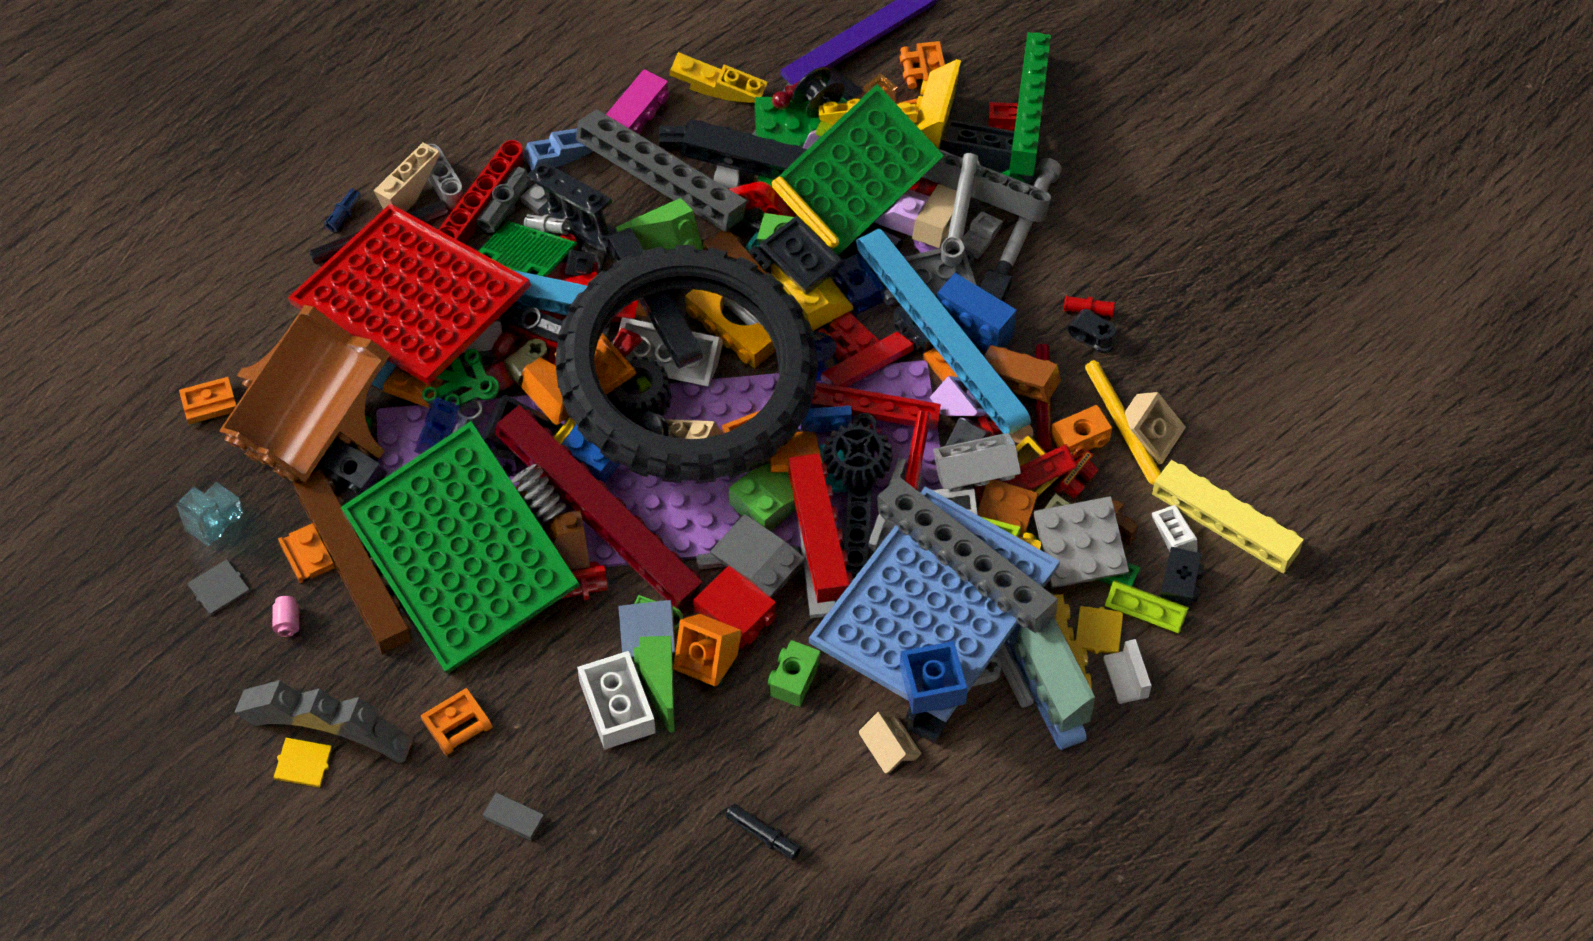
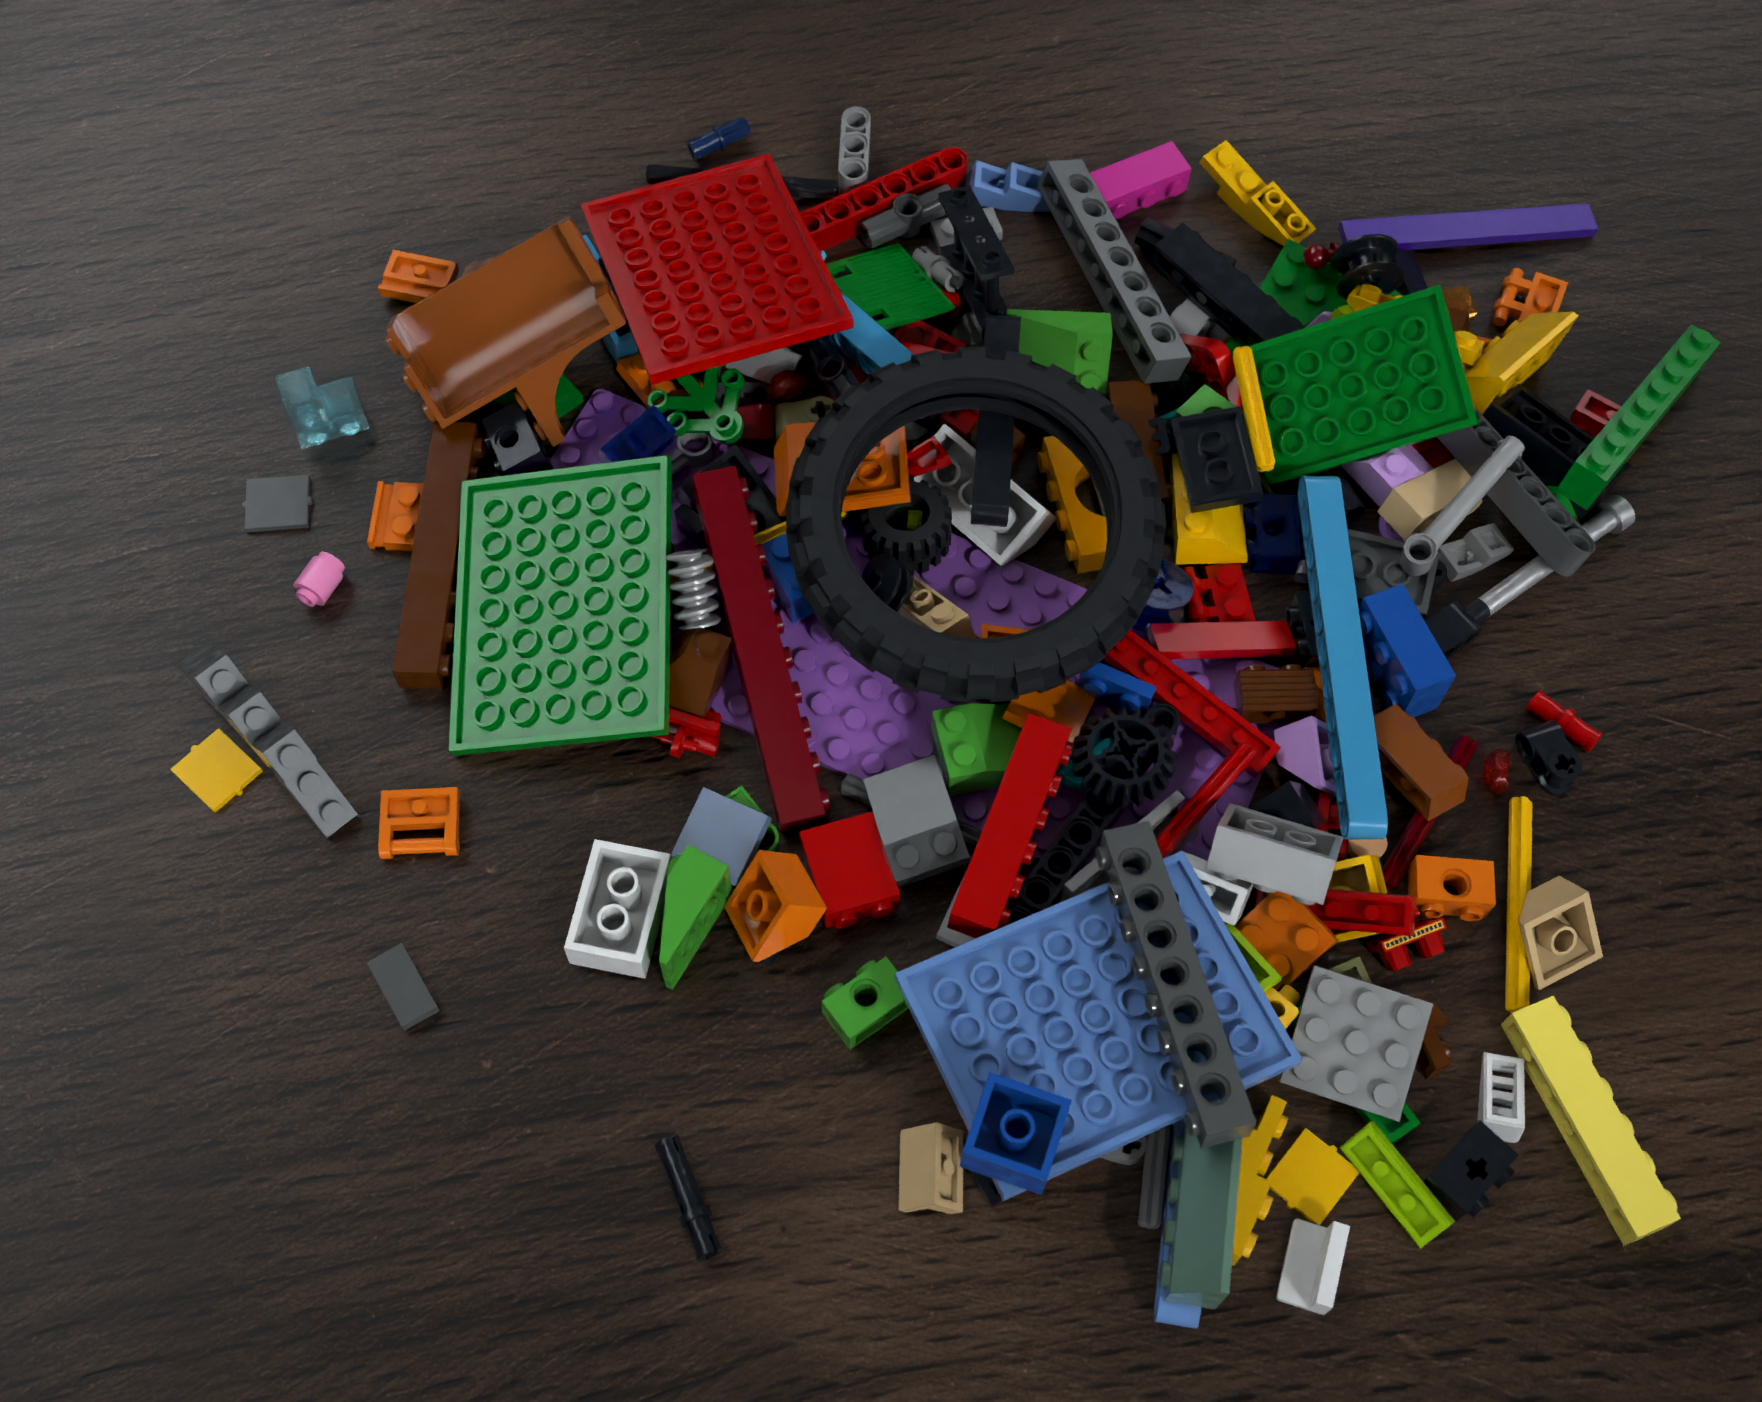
camera: 30 degrees right, 5 degrees up
(408, 179) = (806, 139): tan slope -> none
(579, 263) = (940, 332): black tile -> none
(919, 376) = (1275, 694): none -> reddish brown brick
(1068, 354) = (1496, 771): none -> clear red plate

